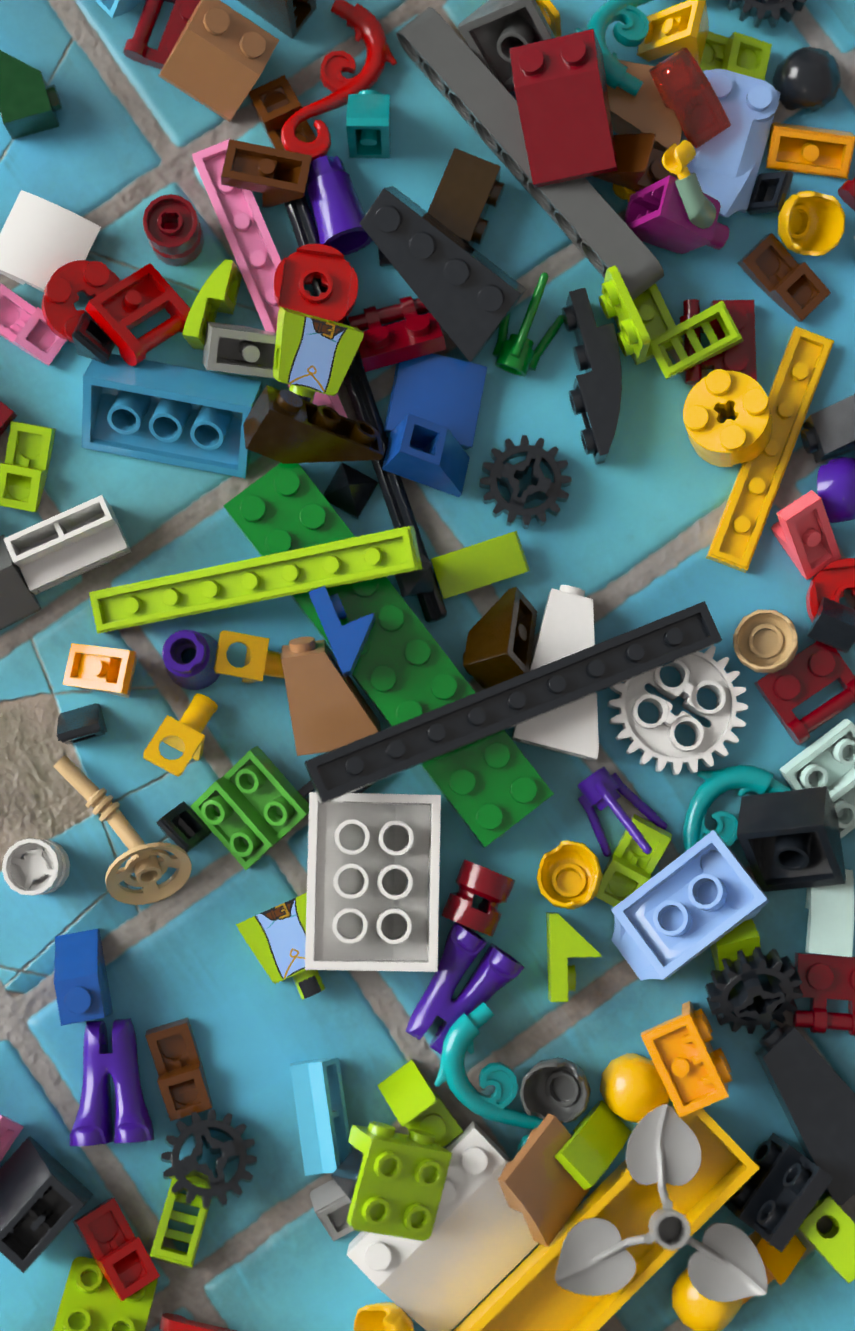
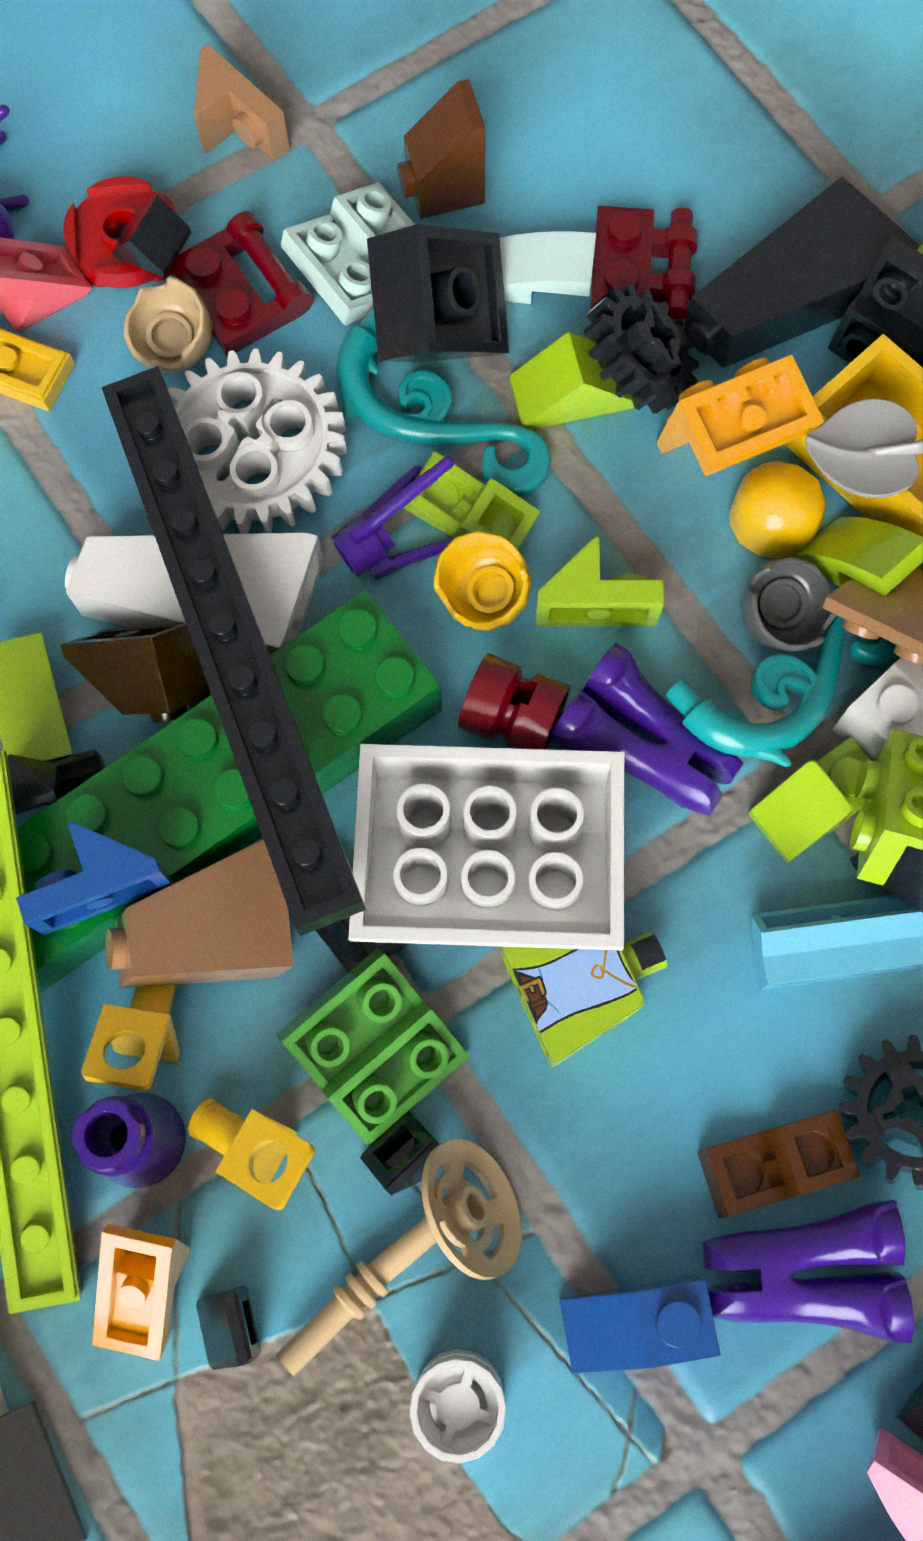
camera: 85 degrees left, 10 degrees down
(685, 909) = (534, 428): light blue slope -> none

